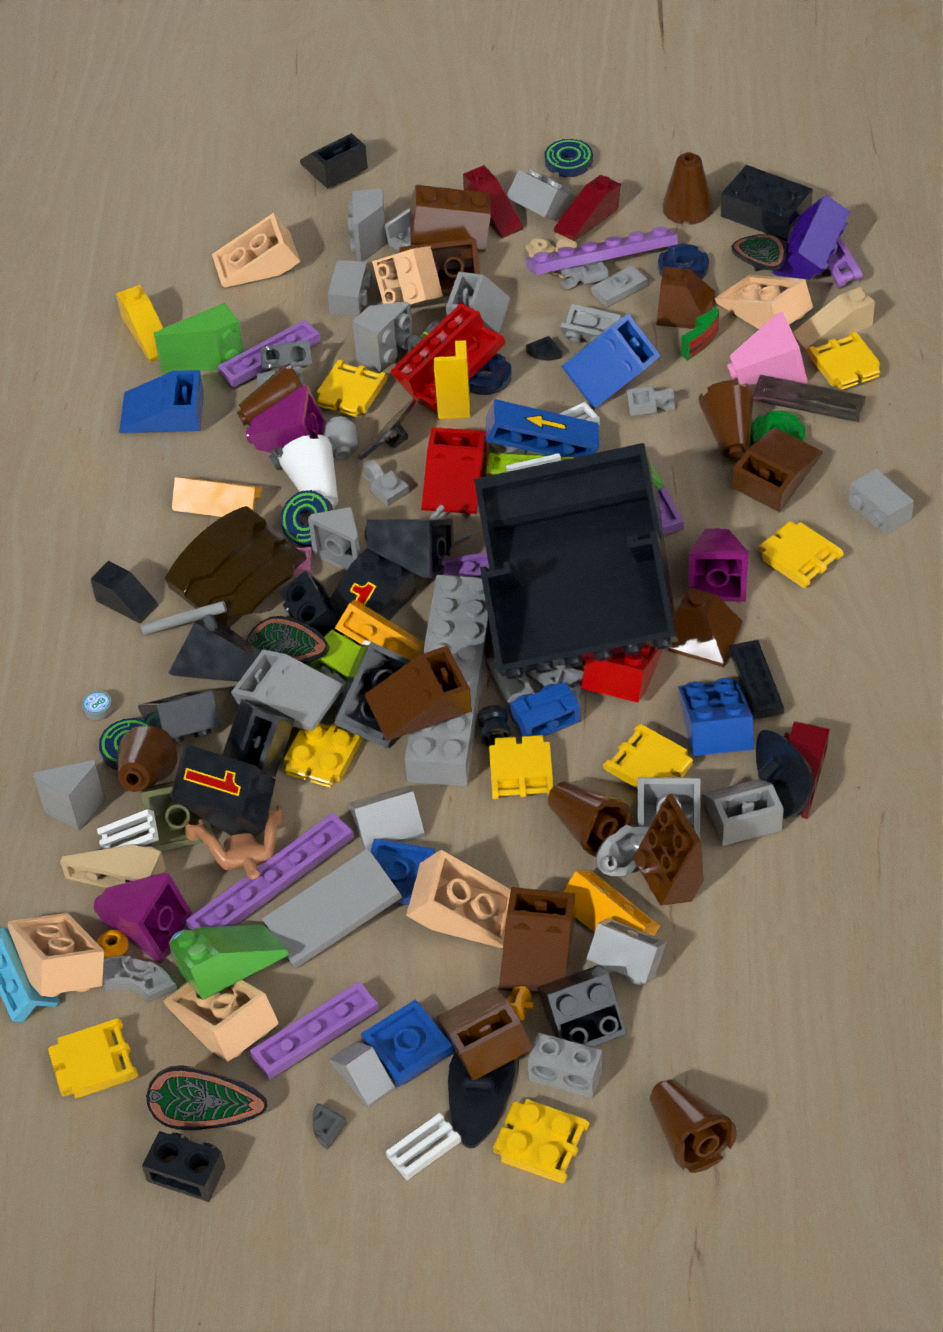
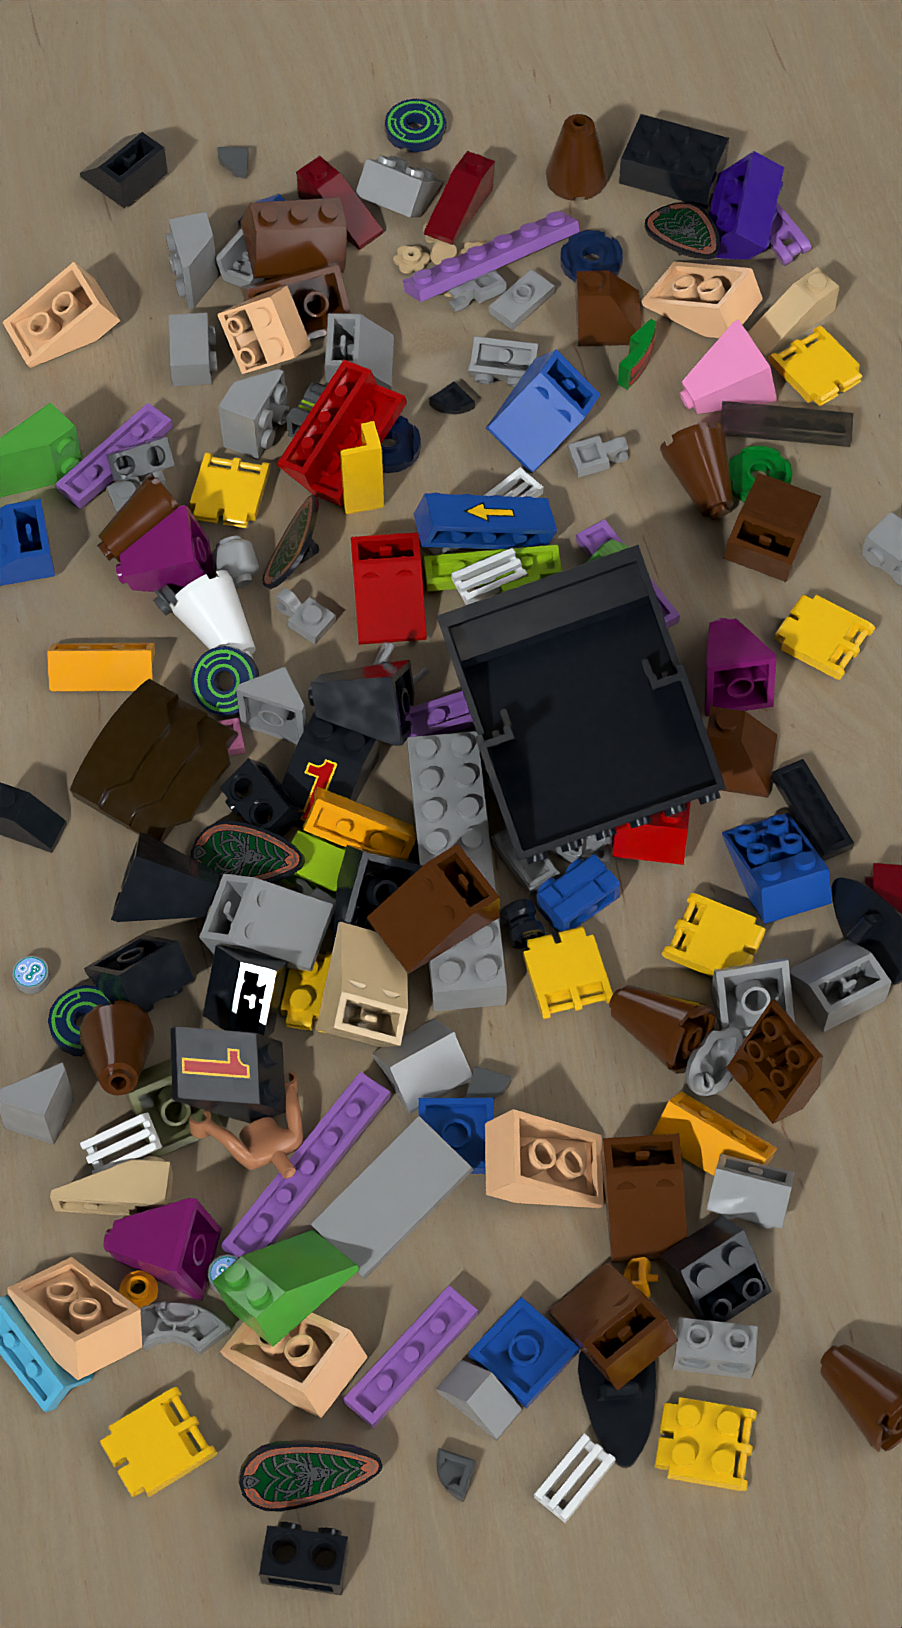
camera: 15 degrees left, 10 degrees up
(183, 618) = (107, 840): light grey bar -> none
(349, 750) = (364, 990): none -> tan slope
(421, 165) = (234, 159): none -> dark grey tile
(435, 838) = (487, 1084): none -> dark grey tile

